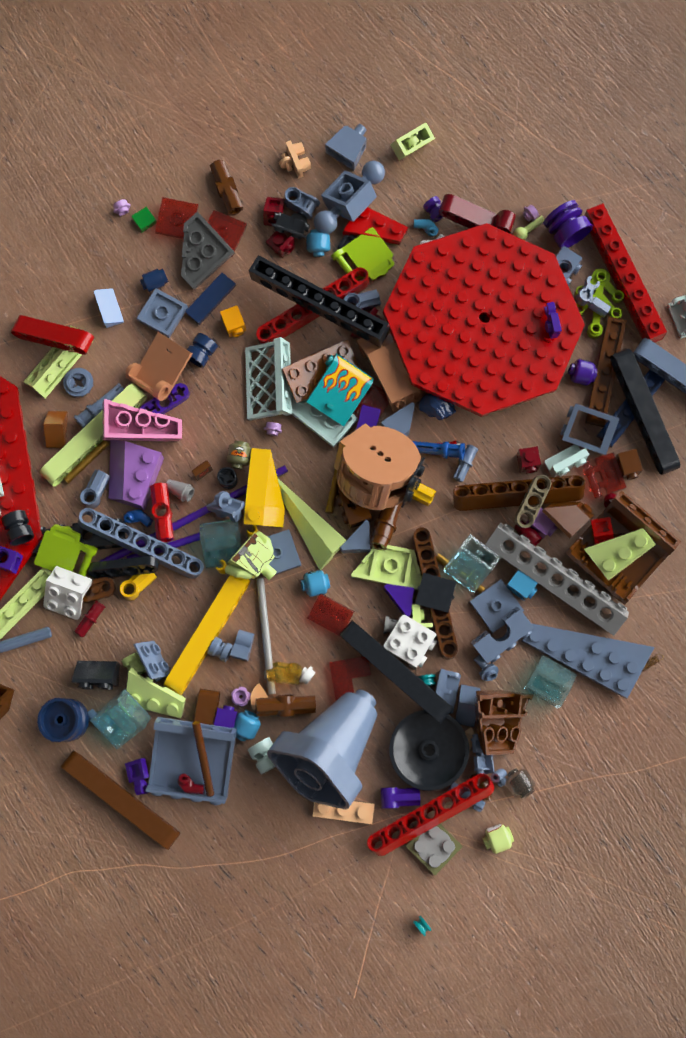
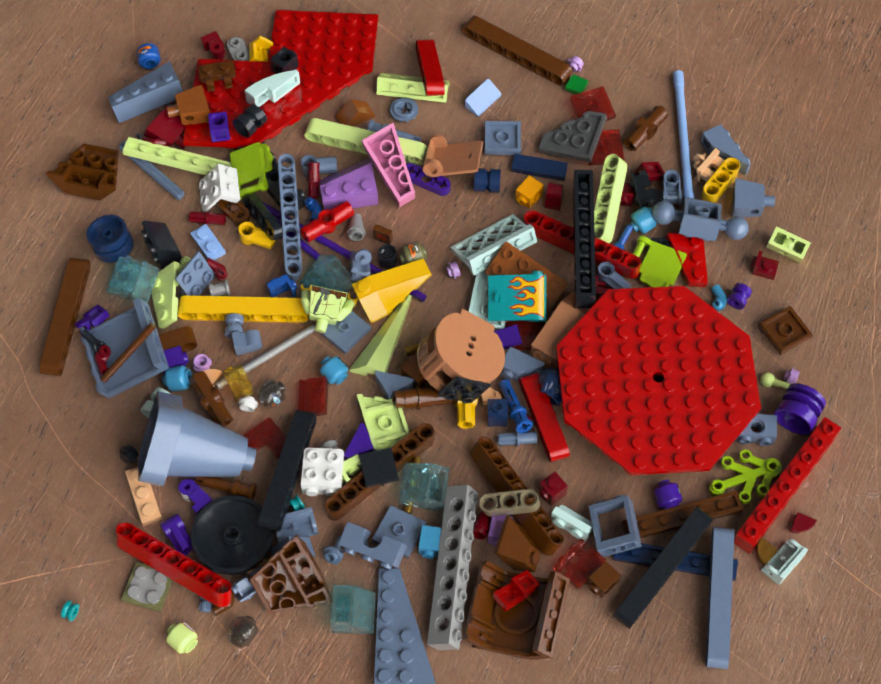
camera: 60 degrees right, 15 degrees down
(75, 249) = (517, 50): none -> reddish brown beam
(86, 461) = (340, 149): pearl gold bar -> none
(109, 502) = (313, 178): none -> dark red axle
(116, 631) = (208, 242): none -> light blue plate
(150, 634) = (218, 269): none -> dark red arm
(154, 279) = (527, 116): dark blue brick -> none
(168, 785) = (92, 340): none -> black bar
(174, 644) = (220, 289): none -> light grey bush
(198, 134) = (678, 81): none -> light blue piece
(200, 590) = (280, 285): none -> blue bracket
(250, 302) = (554, 196): none -> dark red leg
(279, 133) = (721, 140): none -> sand blue slope
(282, 249) = (609, 190): none -> yellowish green beam
(297, 805) = (128, 454): none -> black plate
(308, 649) = (271, 393): none -> clear smoke head
(316, 150) = (722, 174): none -> yellow beam
(329, 278) = (623, 238): none -> blue bar
(373, 763) = (193, 493): none -> dark purple leg
(382, 725) = (234, 487): none -> reddish brown pin
(417, 173) = (764, 266): none -> dark red bracket
(435, 466) = (497, 412): none -> dark blue brick
(459, 430) = (544, 417): none -> red beam
(472, 215) = (752, 324): beam -> none
(487, 191) = (785, 330): none -> reddish brown plate
(499, 777) = (240, 607): sand blue arm -> none
(552, 324) = (687, 434): dark purple plate -> none
(585, 297) = (739, 460): sand blue bar -> none
(620, 552) = (508, 605): yellowish green wing -> none
(660, 283) = (802, 523): none -> dark red tile
(671, 326) = (765, 551): none -> pearl gold tile

